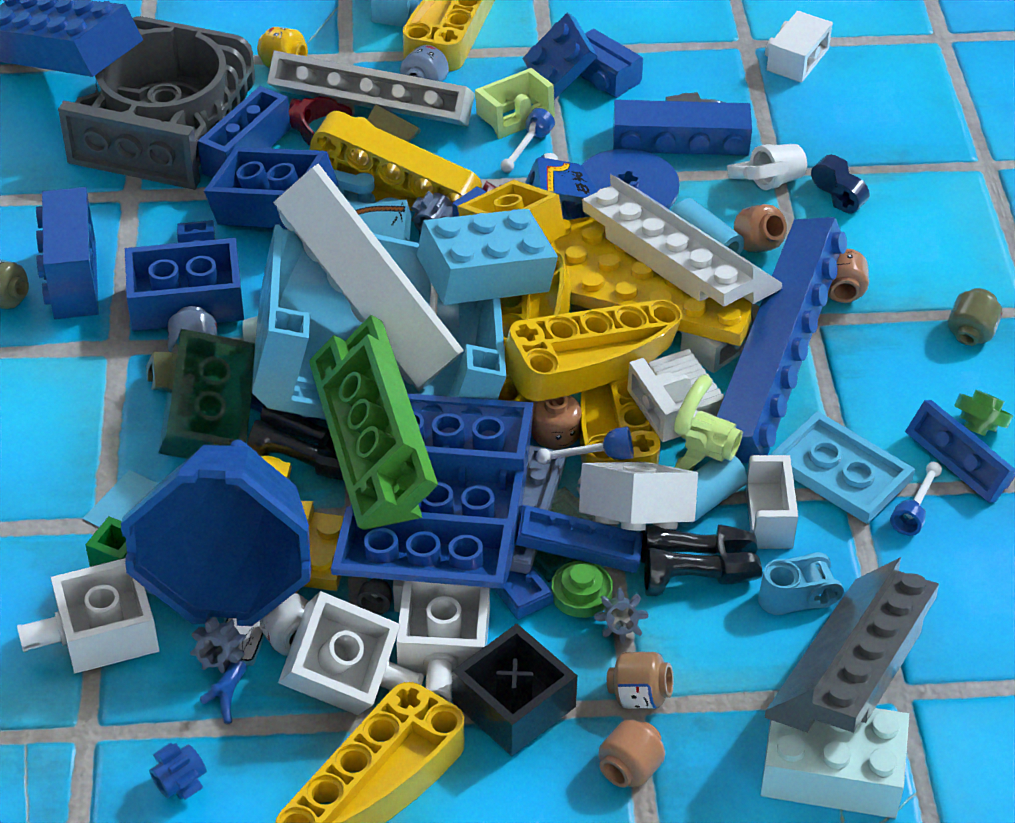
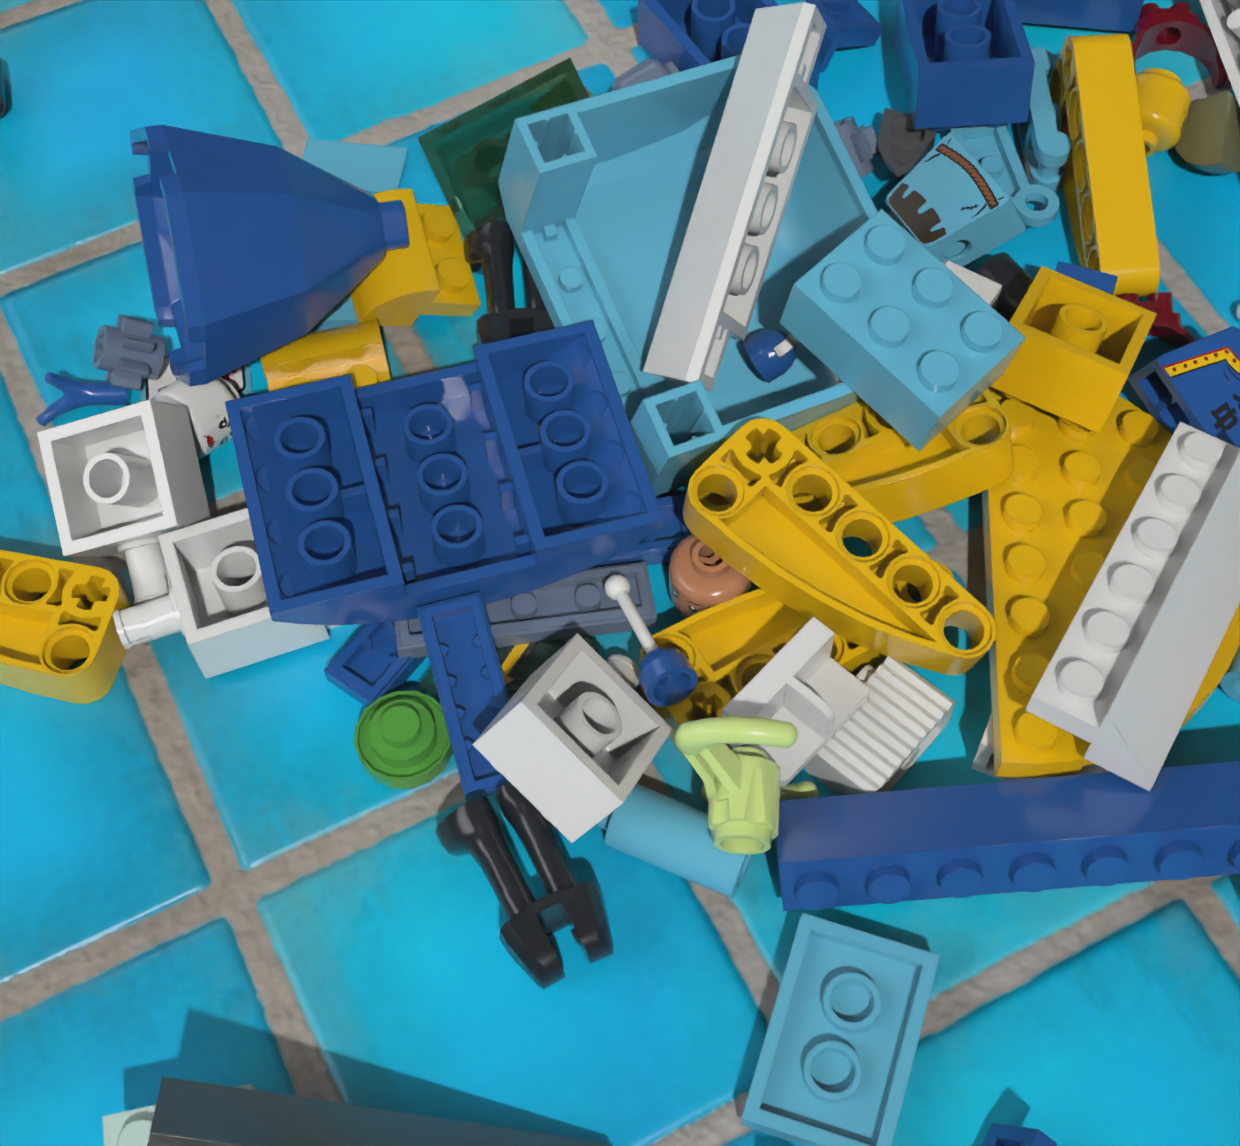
camera: 70 degrees right, 15 degrees up
(99, 618) = (97, 213): white brick -> none
(373, 427) = (494, 339): bright green slope -> none
(431, 207) = (1055, 245): sand blue gear -> none
(514, 689) = (161, 717): black brick -> none
(621, 628) = (362, 809): sand blue gear -> none
(631, 753) = (112, 918): nougat head -> none
(640, 680) = (253, 882): medium nougat head -> none
(772, 501) = (696, 953): white panel -> none
(797, 582) = (553, 1063): medium azure piece -> none

